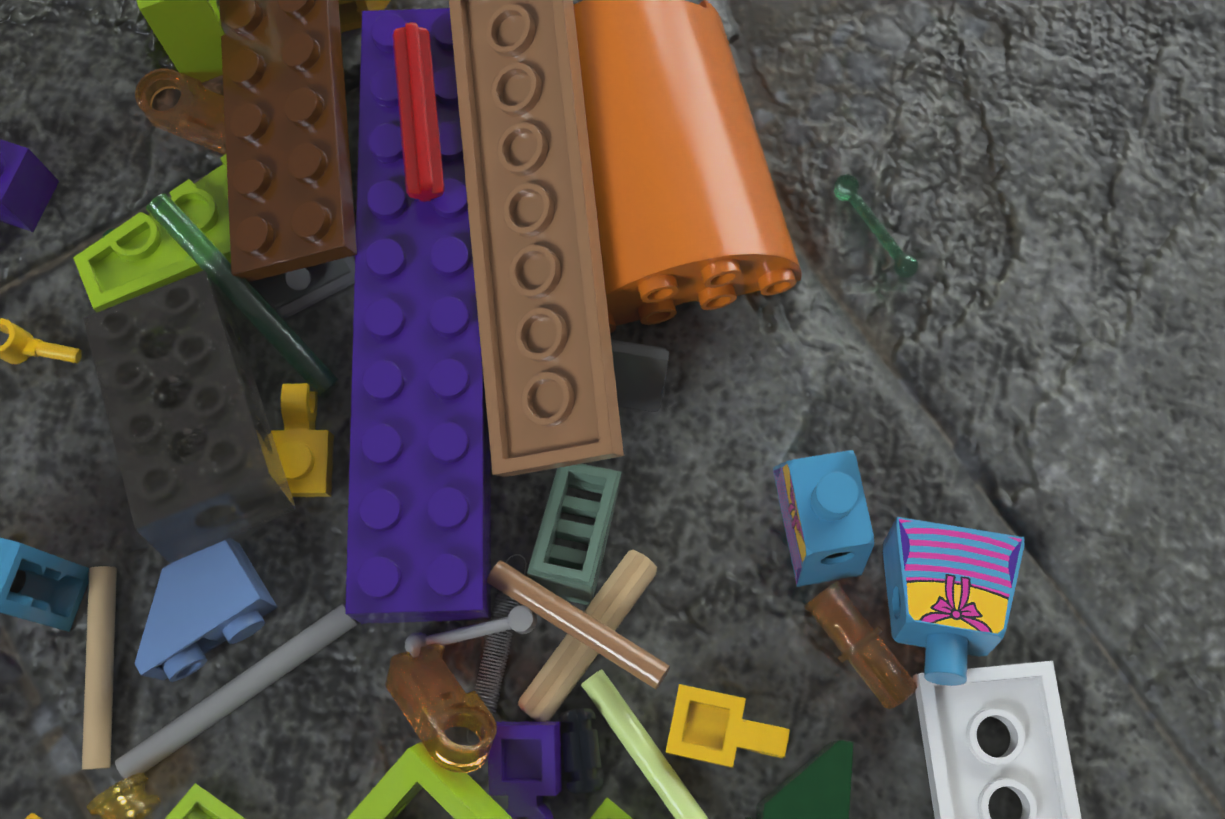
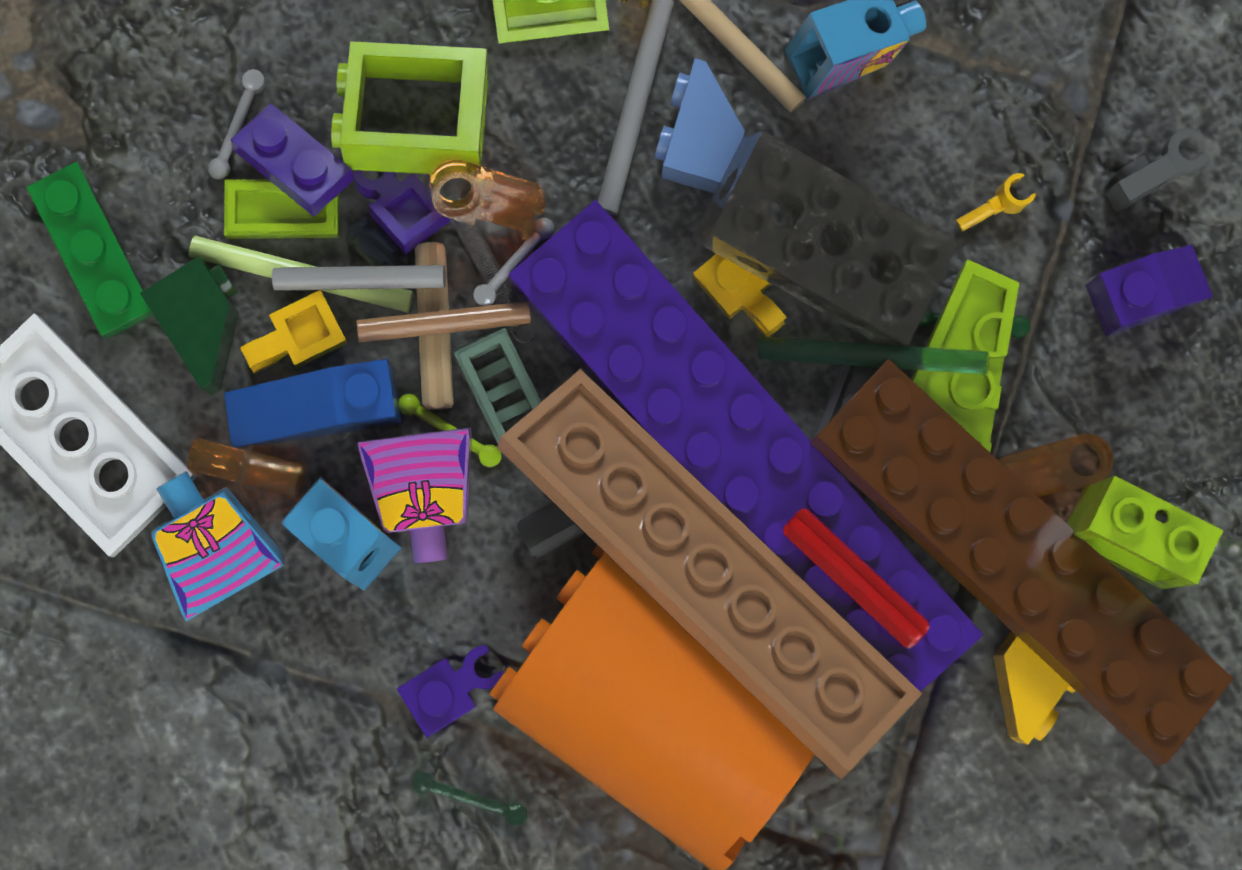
camera: 135 degrees right, 10 degrees up
(621, 733) = (359, 277): none -> light grey bar
(634, 485) = (410, 405): none -> lime hinge
(713, 498) = (420, 486): none -> torso
(756, 649) = (314, 404): none -> blue slope
(835, 319) = (443, 694): none -> dark purple plate

